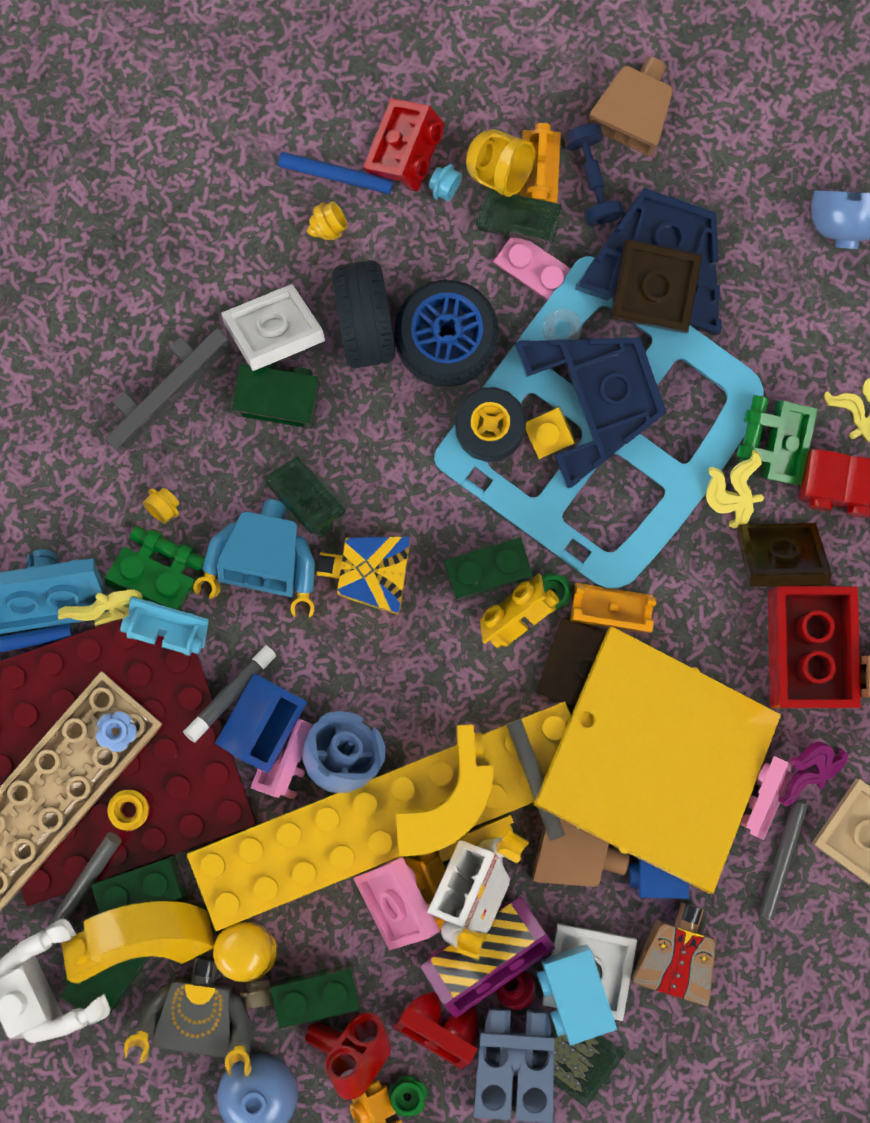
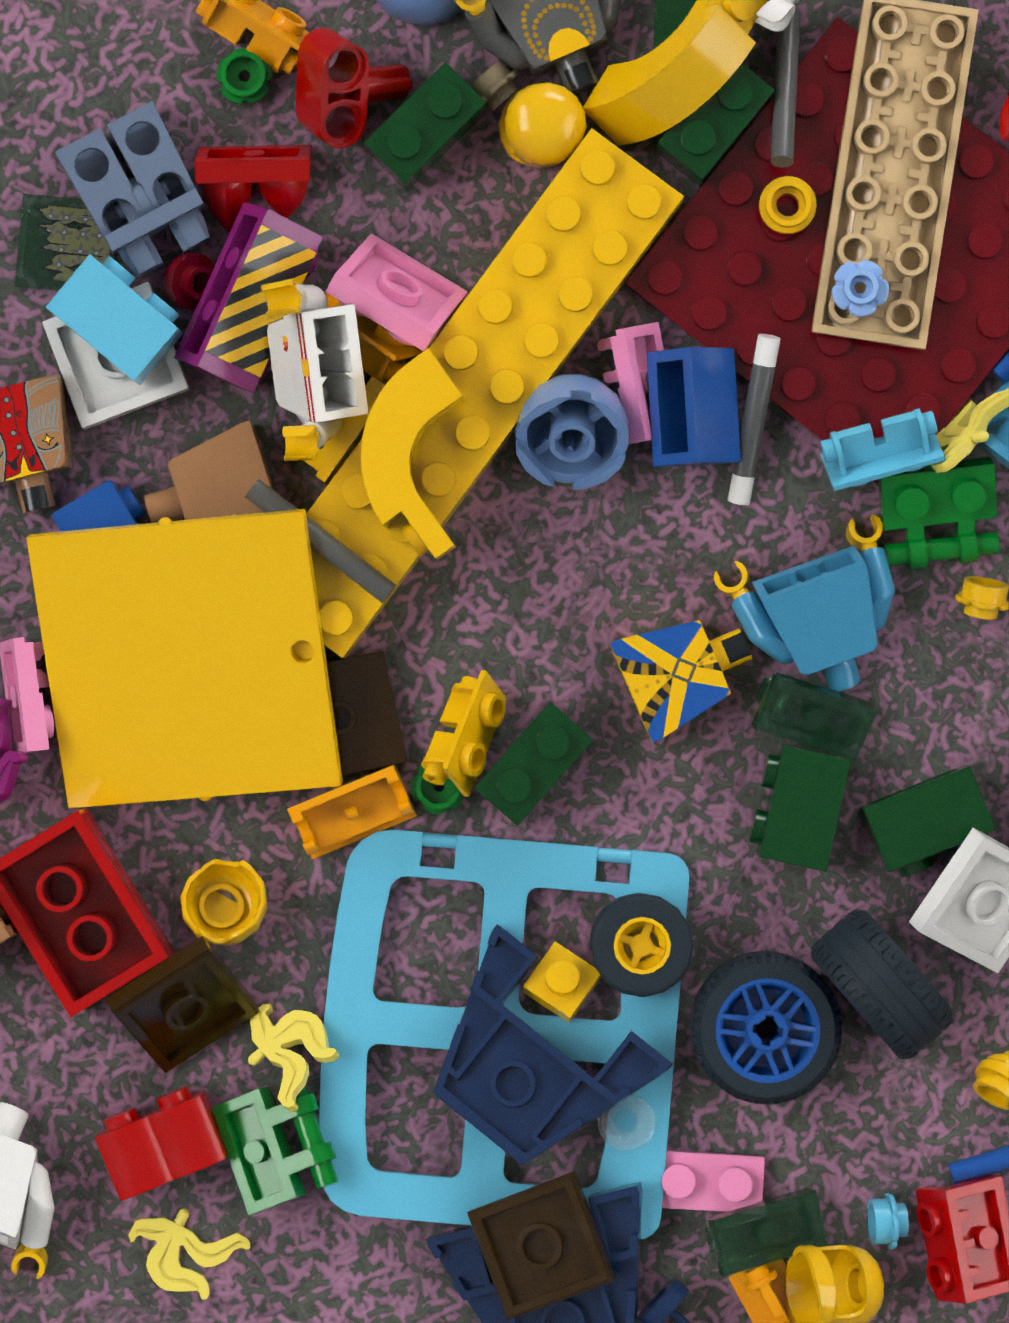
camera: 155 degrees right, 5 degrees up
(346, 447) = (800, 807): none -> dark green brick
(731, 596) = (216, 916): none -> yellow hair

